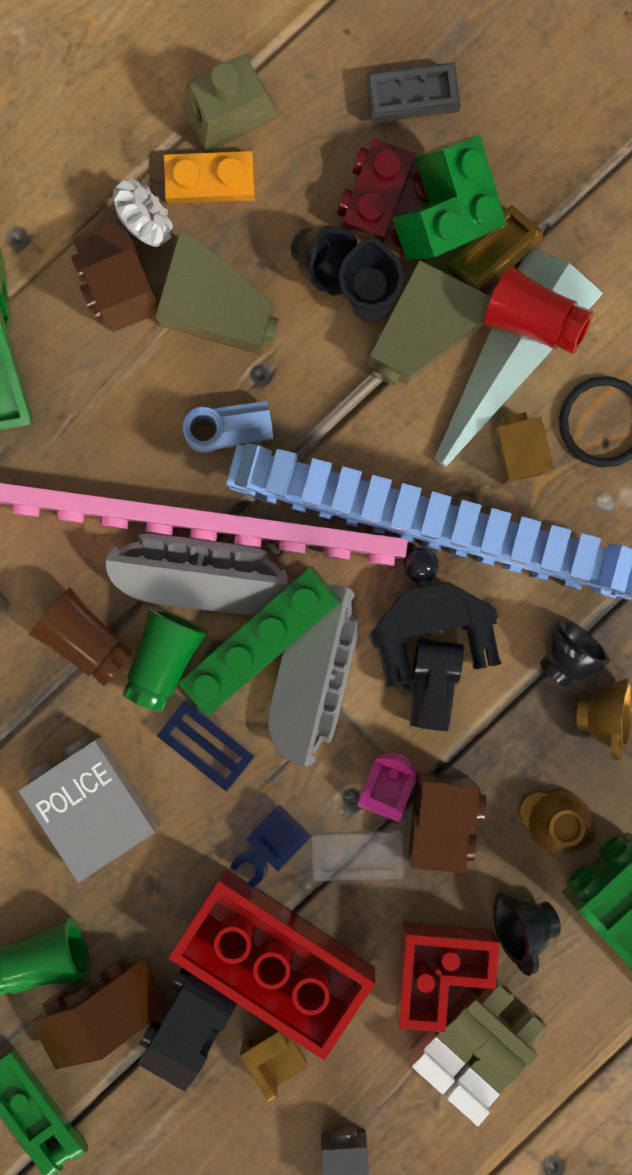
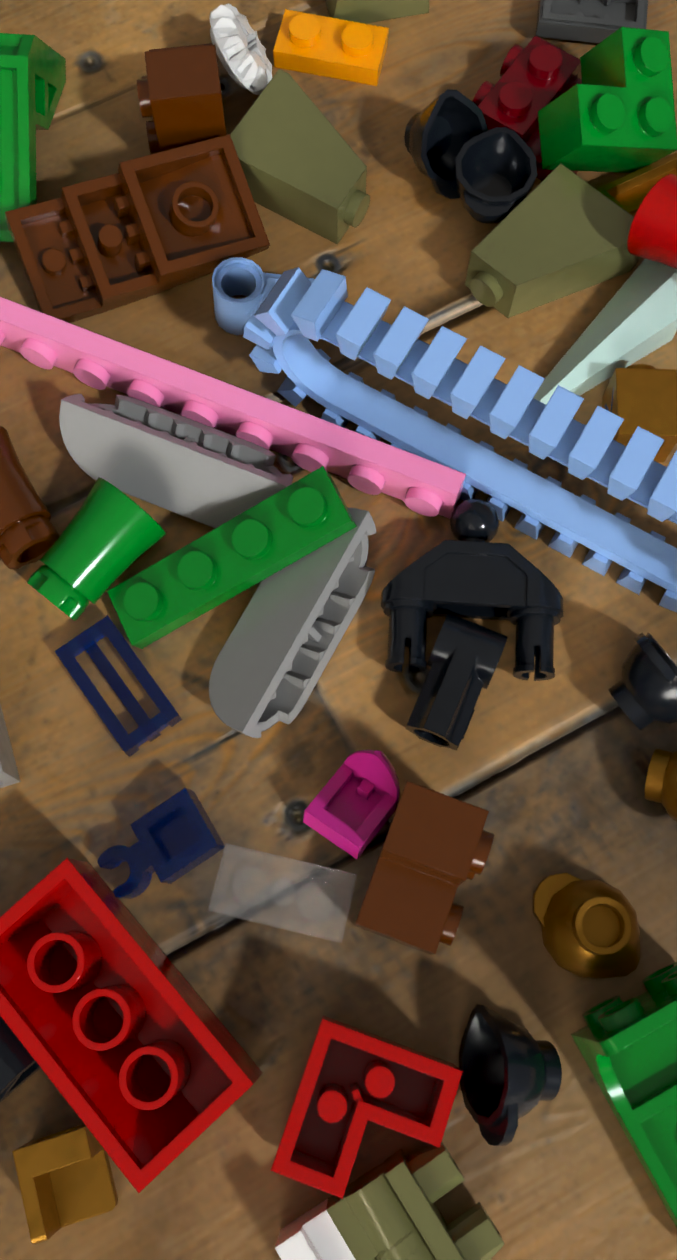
camera: 10 degrees right, 15 degrees down
(113, 399) = (137, 230): none -> reddish brown slope

